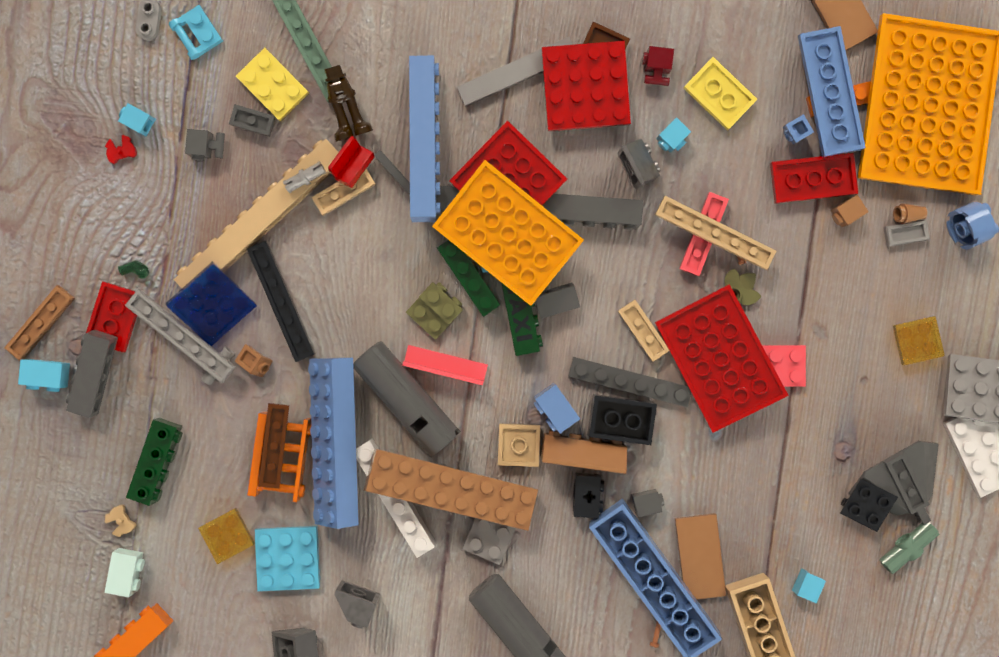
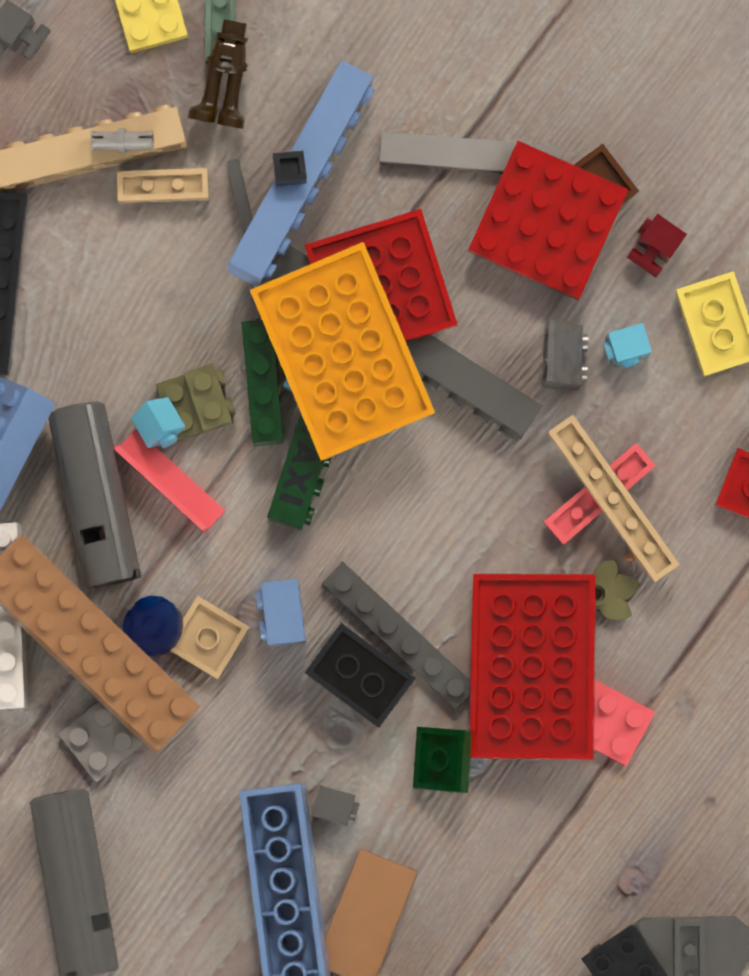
camera: 25 degrees right, 5 degrees down
(252, 120) = (95, 33): dark grey plate -> none
(350, 162) = (191, 154): red panel -> none
(415, 139) = (289, 168): none -> black plate
(420, 335) = (158, 423): none -> medium azure brick
(483, 456) = (154, 625): none -> clear blue tile
(557, 300) = (360, 475): dark grey hinge -> none
(582, 484) = (245, 761): black brick -> none
(584, 453) = (286, 691): medium nougat slope -> none
(643, 330) = (452, 576): tan plate -> none
(697, 442) = (442, 759): none -> dark green plate

